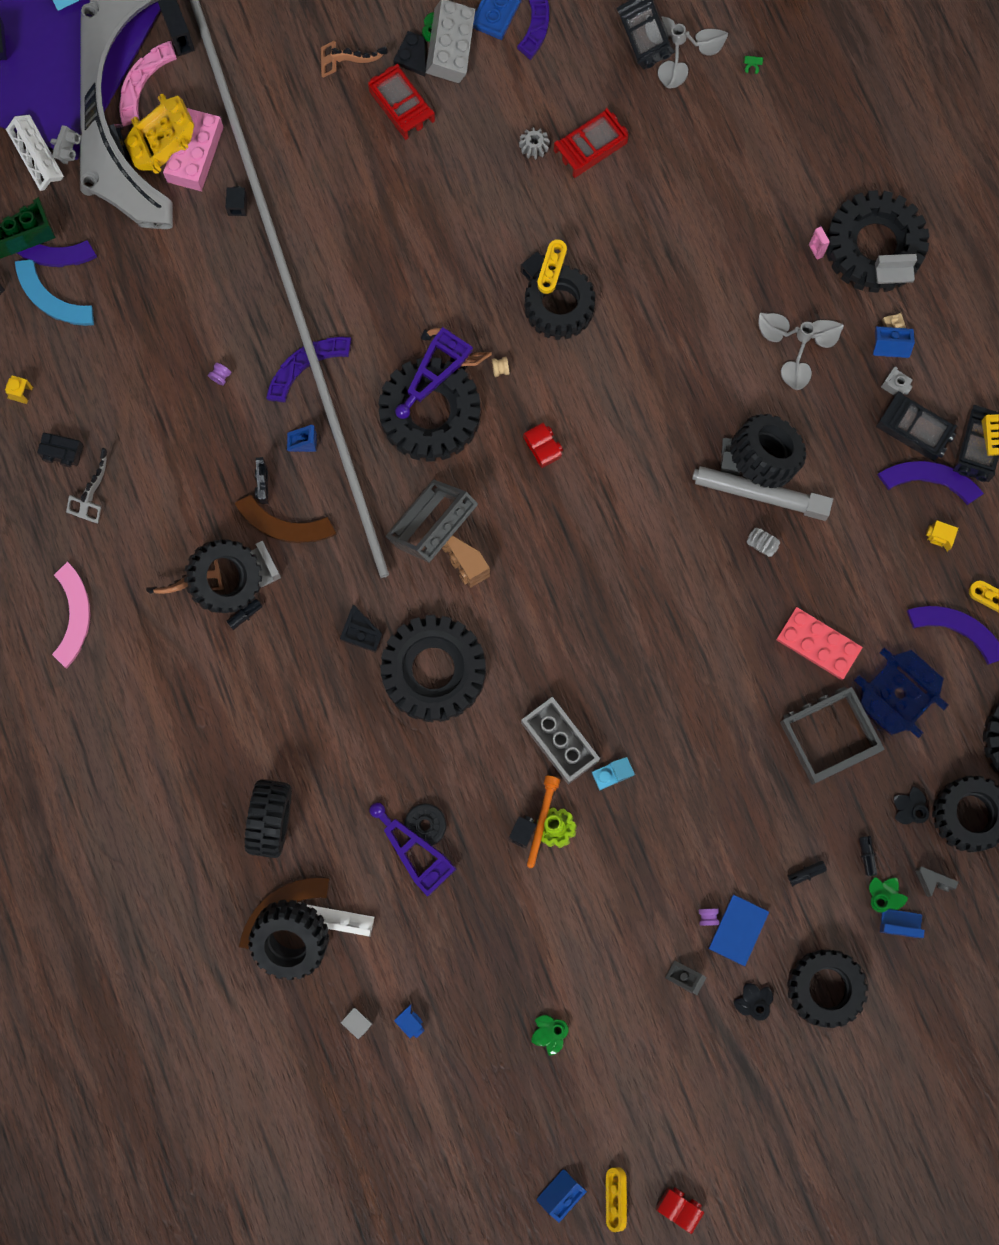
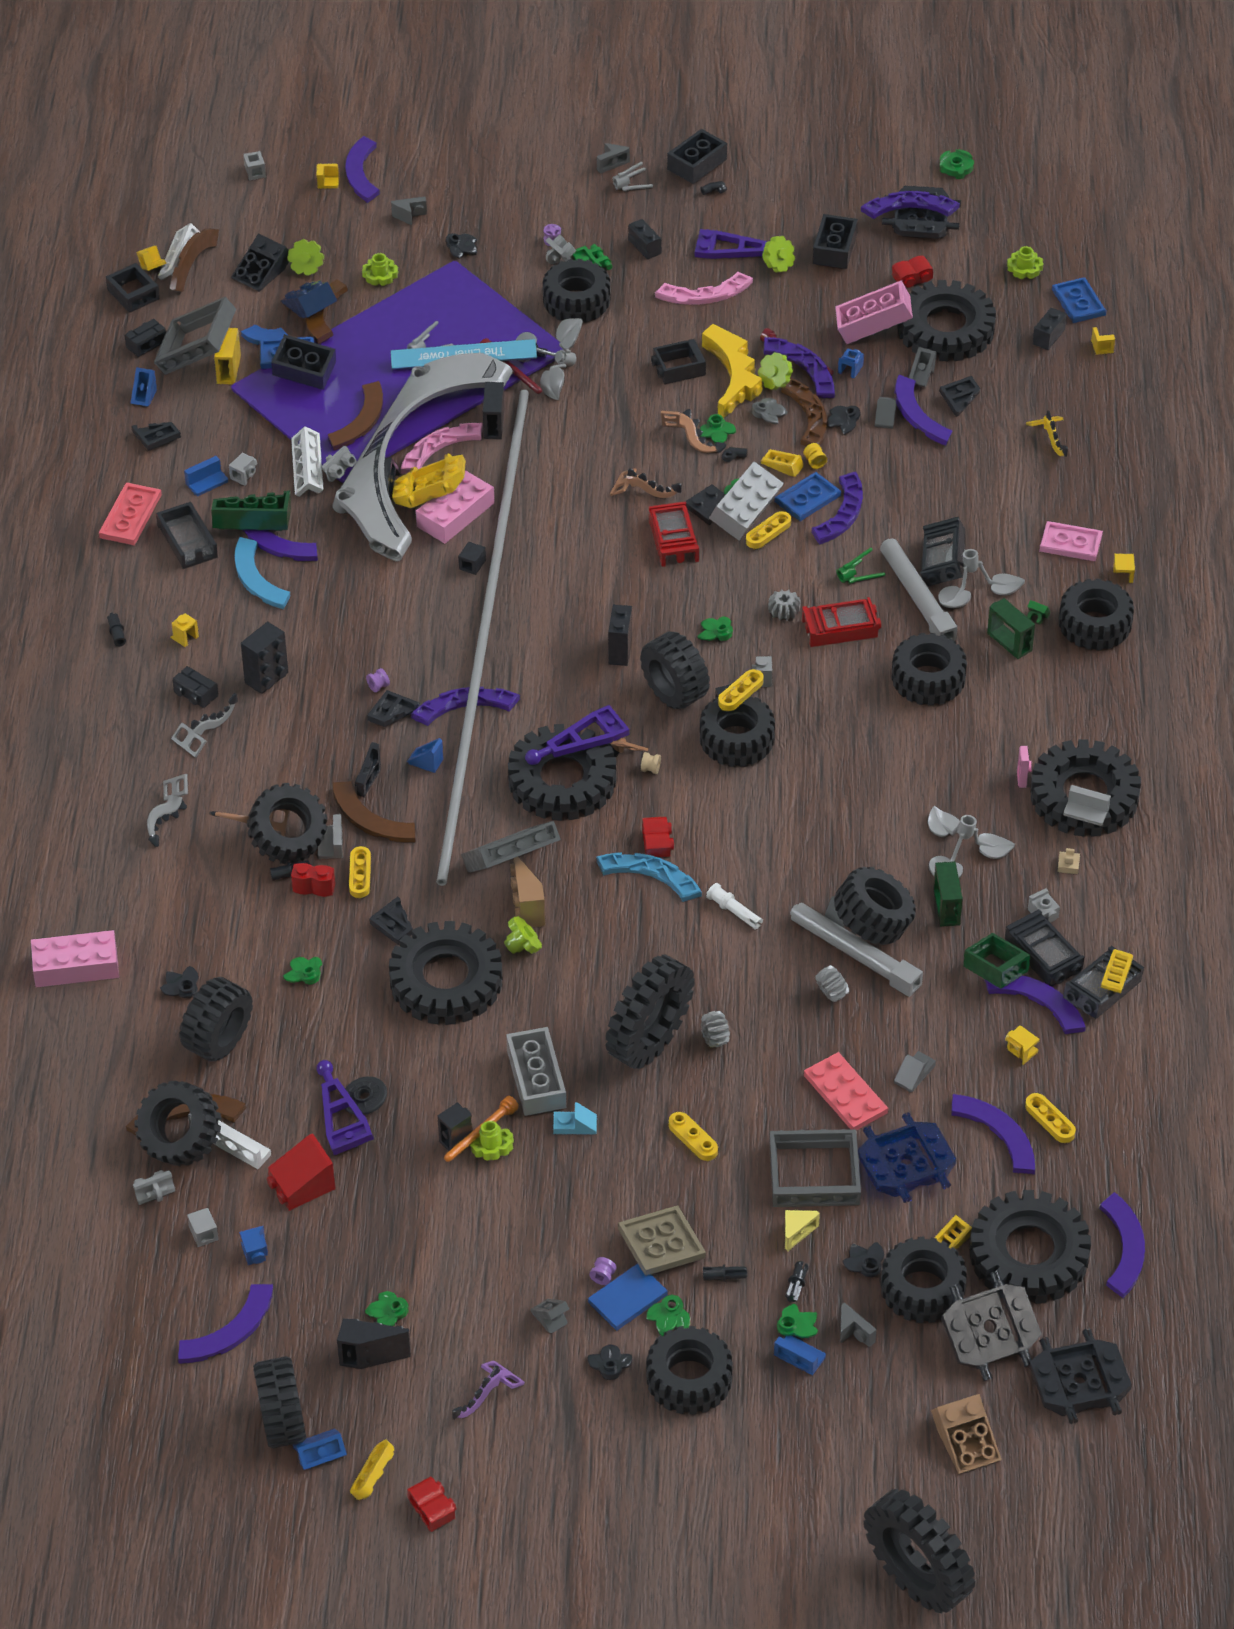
camera: 25 degrees right, 30 degrees down
(63, 80) = (364, 421): none -> reddish brown tile
(79, 615) = (132, 822): bright pink tile -> none
(104, 793) = (74, 958): none -> bright pink brick
(106, 585) = (166, 809): none -> light grey piece
(111, 399) = (264, 657): none -> black brick
(207, 773) = (180, 984): none -> black plate
(246, 400) = (391, 708): none -> black wing
(265, 620) = (313, 879): none -> red brick
(296, 1003) = (153, 1187): none -> light grey hips
(302, 583) = (360, 872): none -> yellow plate
(306, 713) = (304, 970): none -> green plate
(412, 240) = (620, 635): none -> black brick
(414, 936) = (302, 1174): none -> red slope
(435, 1112) = (233, 1333): none -> dark purple tile
(481, 57) = (768, 530): none -> yellow plate
(481, 604) = (521, 937): none -> lime plant
(483, 265) = (674, 670): none -> black tyre
(484, 191) = (716, 629): none -> green plate
(518, 1188) = (279, 1402): none -> black tyre
(550, 227) = (764, 665): none -> light grey brick
(551, 476) = (651, 866): none -> dark azure tile
(554, 1086) = (371, 1344): none -> black slope
(571, 83) = (848, 571): none -> green plant
(634, 488) = (728, 901): none -> white pin
(641, 656) = (637, 1040): none -> black tyre
(672, 1070) = (496, 1375): none -> medium lavender piece
(677, 110) = (938, 621): none -> light grey brick
(688, 631) = (715, 1029): none -> light grey gear
(692, 145) = (926, 686): none -> black tyre
(707, 744) = (683, 1126): none -> yellow plate
(741, 93) = (1018, 643): none -> dark green window
(743, 866) = (661, 1240): none -> dark tan plate
(782, 937) = (667, 1317): none -> green plate
(811, 28) = (1095, 631): none -> black tyre
(817, 406) = (947, 894): none -> dark green window
(844, 802) = (799, 1225): none -> light yellow slope
(866, 598) = (914, 1070): none -> slope
(889, 445) = (1016, 960): none -> dark green window
(893, 342) = (1057, 873): blue panel -> none
(962, 753) = (954, 1223): none -> yellow slope

